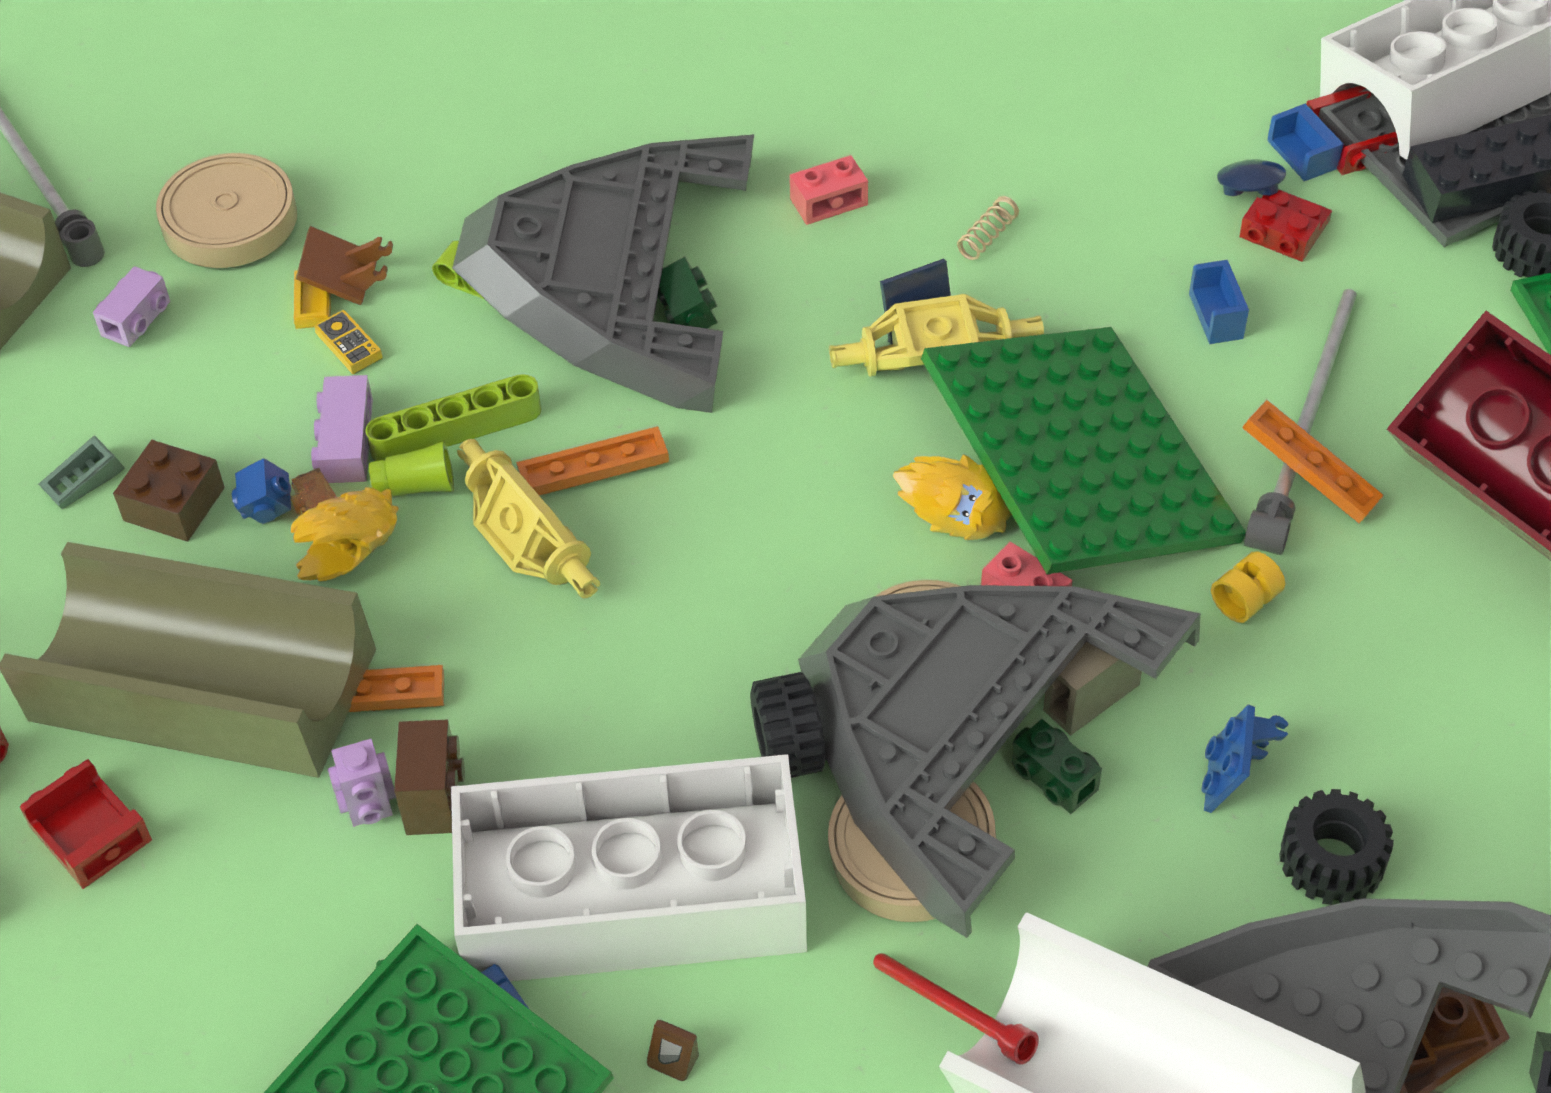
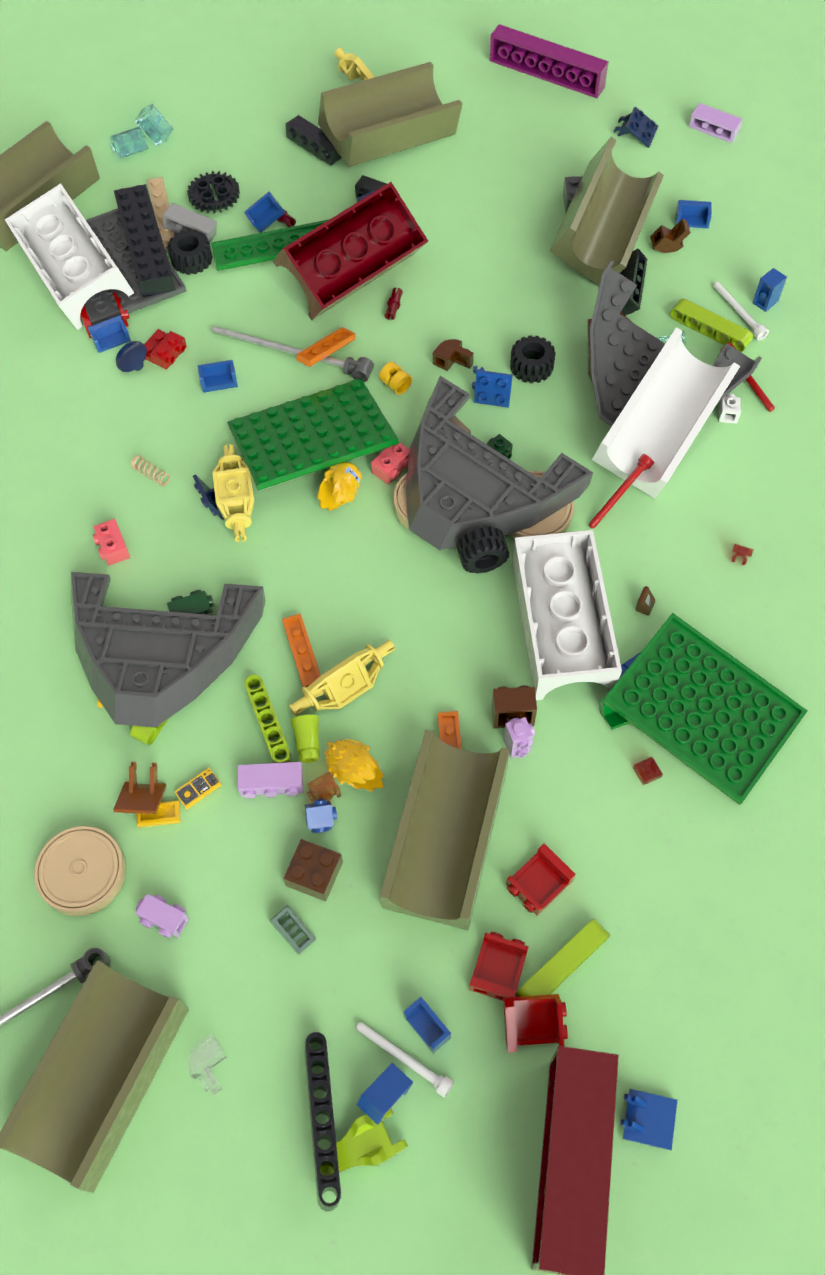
camera: 90 degrees left, 10 degrees up
(277, 1028) = (647, 771): none -> clear red tile
(1336, 687) = (450, 352): none -> reddish brown brick
(1473, 587) = (393, 303): none -> dark red pin

